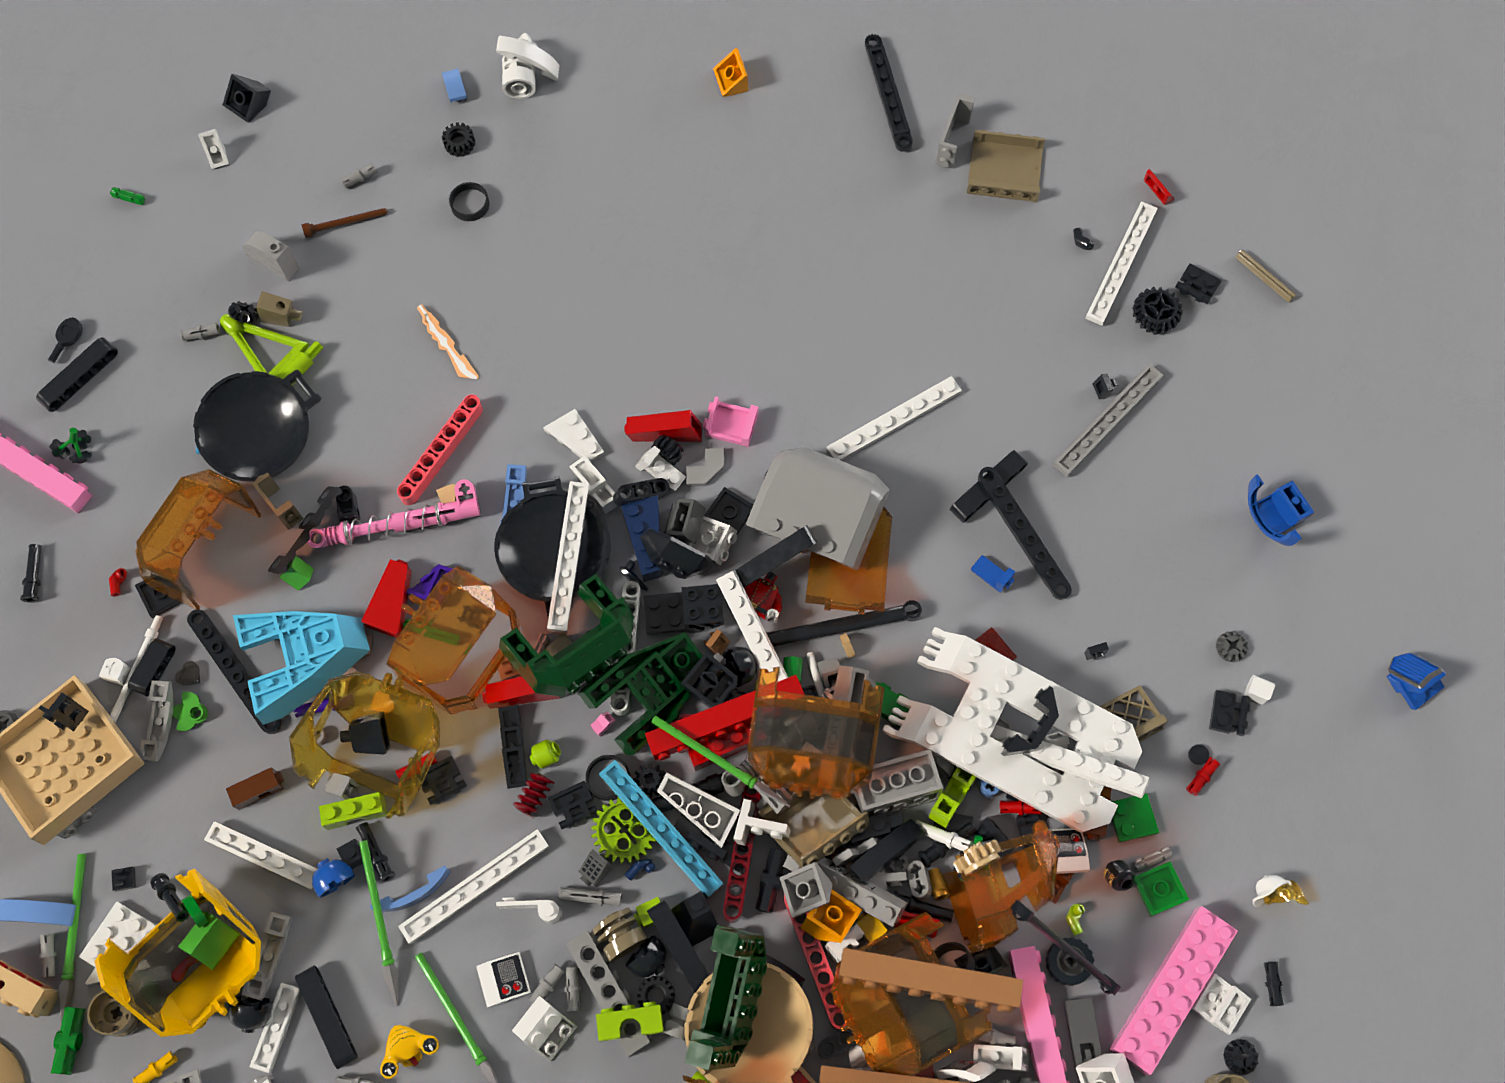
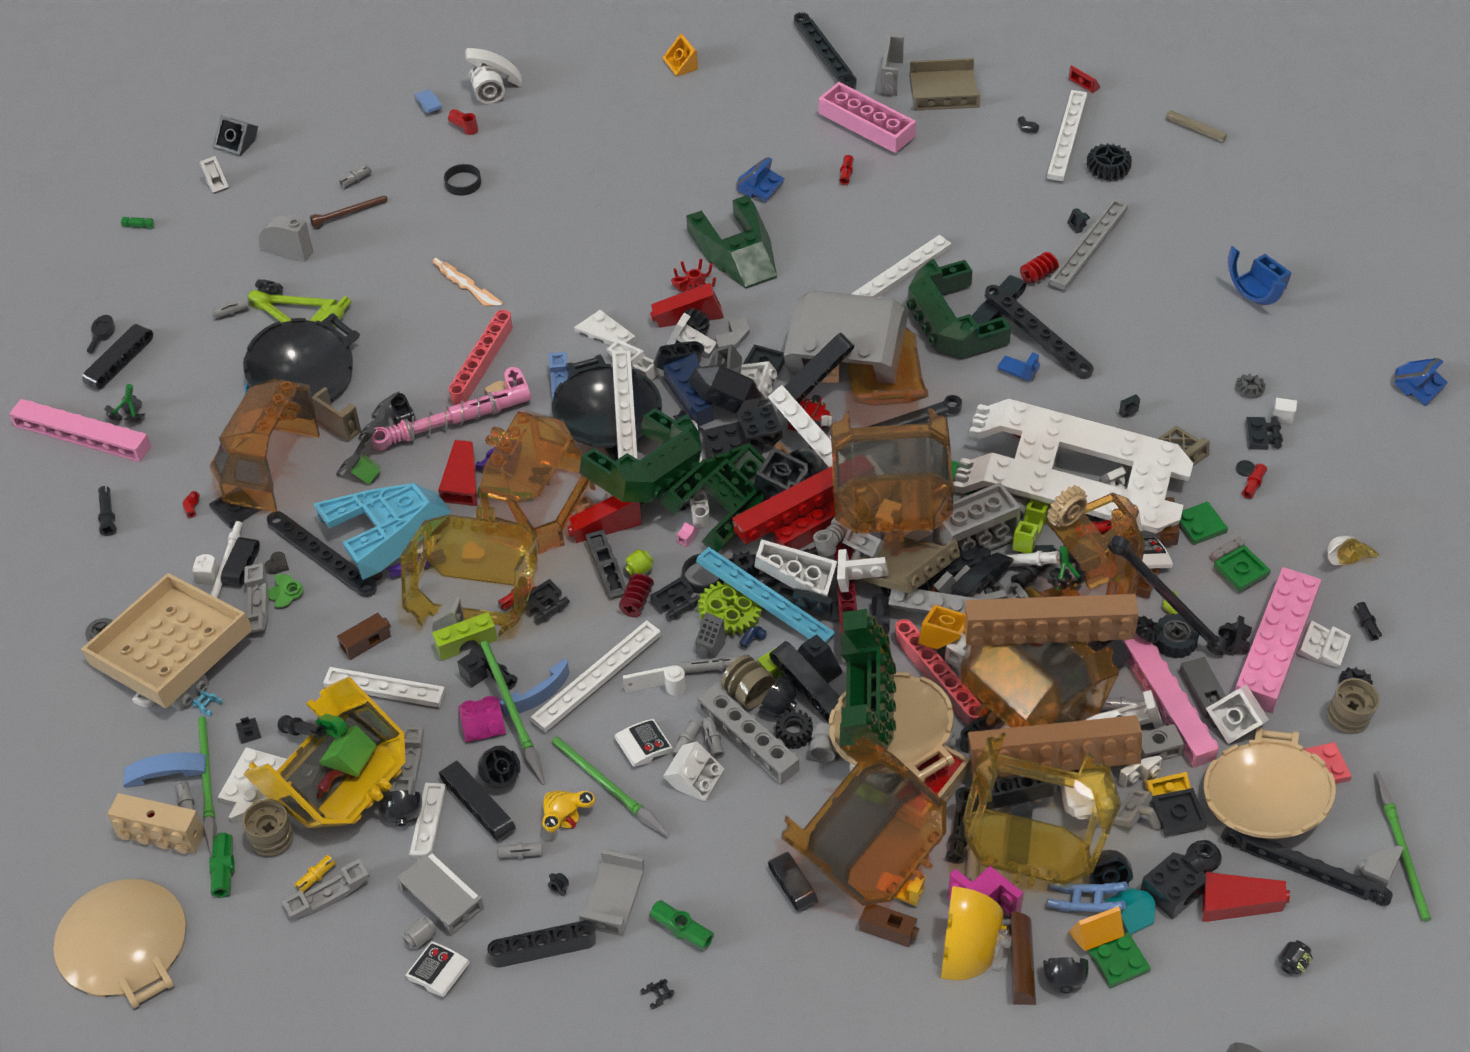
camera: 10 degrees left, 20 degrees down
(65, 713) = (170, 589): black bracket -> none
(84, 840) = (210, 697): none -> medium azure piece
(277, 310) = (301, 278): dark tan torso -> none
(331, 876) = (457, 686): blue cylinder -> none
(349, 914) = (481, 718): none -> dark pink bracket
(352, 987) = (498, 767): none -> black cylinder
(368, 734) = (464, 573): black torso -> none
(455, 131) = (436, 142): black tyre -> none
(485, 121) = (465, 121): none -> red piece
(610, 1021) = (791, 734): lime arch -> none
(680, 386) = (693, 277): none -> red animal
(730, 422) = (747, 298): bright pink panel -> none
(740, 360) = (744, 255): none -> dark green wedge
(744, 777) = (835, 529): bright green piece -> none
(777, 266) = (760, 180): none -> blue piece
(806, 889) = (914, 604): light grey slope -> none
(871, 274) = (845, 175): none -> red pin
(911, 200) = (867, 117): none -> bright pink brick
(924, 493) = (945, 331): none -> dark green wedge
(1032, 953) = (1152, 633): none -> black gear
(1045, 443) = (1039, 267): none -> red piece
(1045, 703) = (1085, 467): black slope -> none
(1081, 765) = (1144, 474): white plate -> none
(1119, 875) = (1201, 562): black head -> none
(1129, 975) = (1234, 633): none -> black hips
(1199, 280) = (1139, 140): black plate -> none

